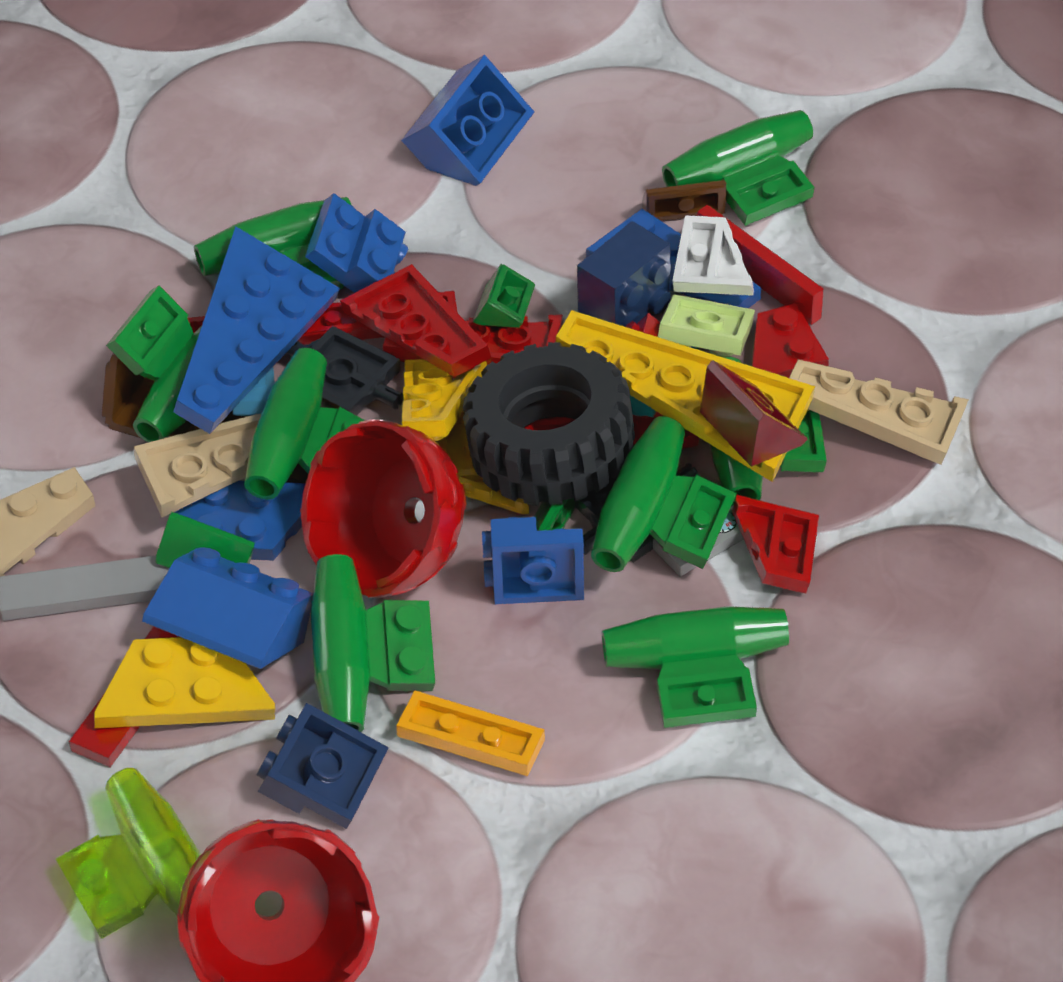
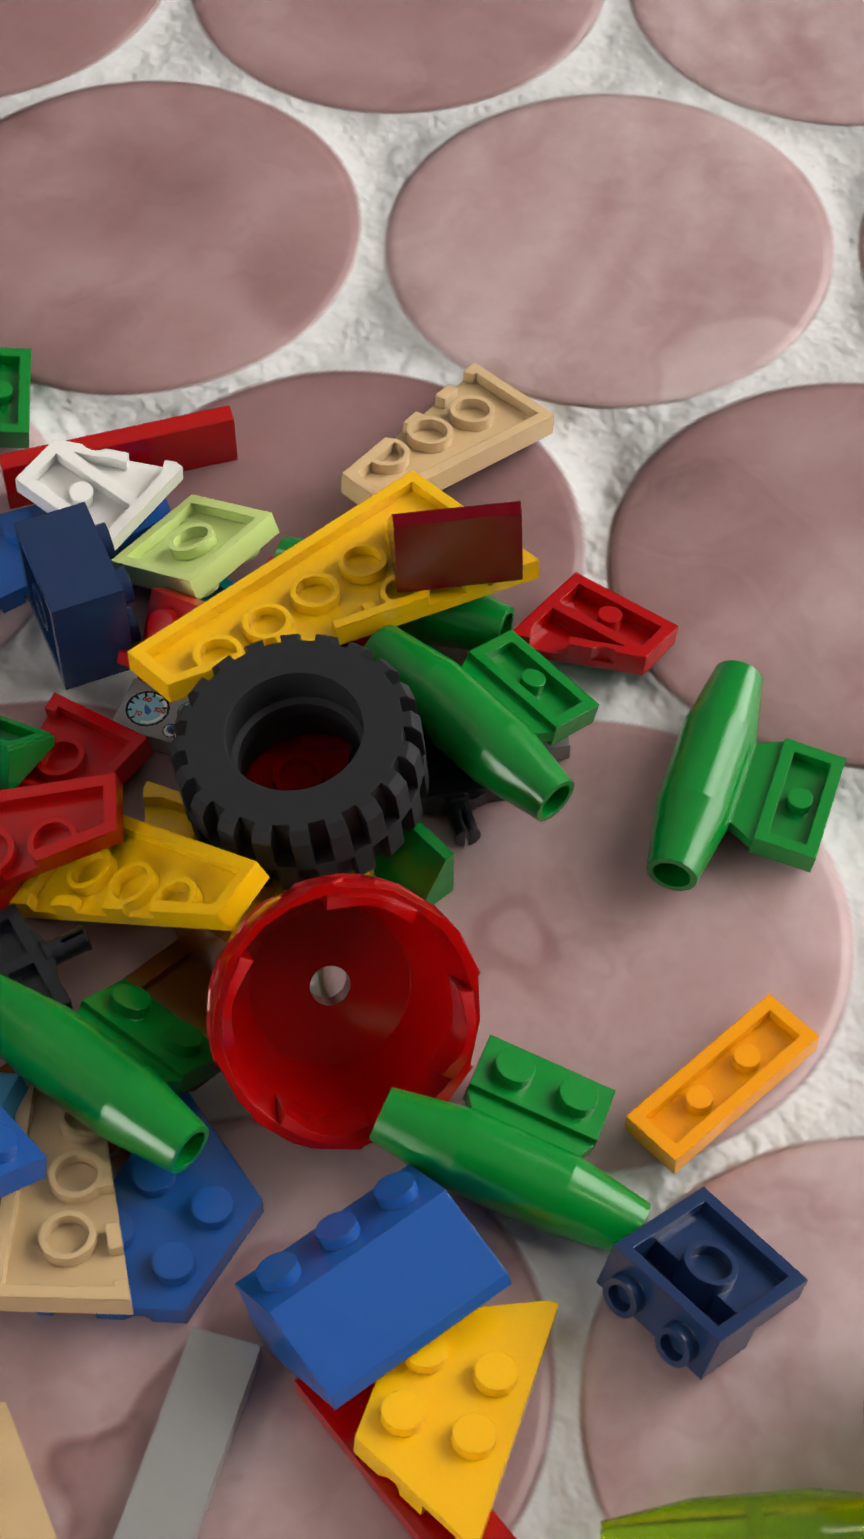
camera: 65 degrees left, 5 degrees up
(187, 534) = (202, 1299): green slope -> none
(533, 563) = (499, 882): blue plate -> none
(783, 339) = (268, 483): red wing -> none

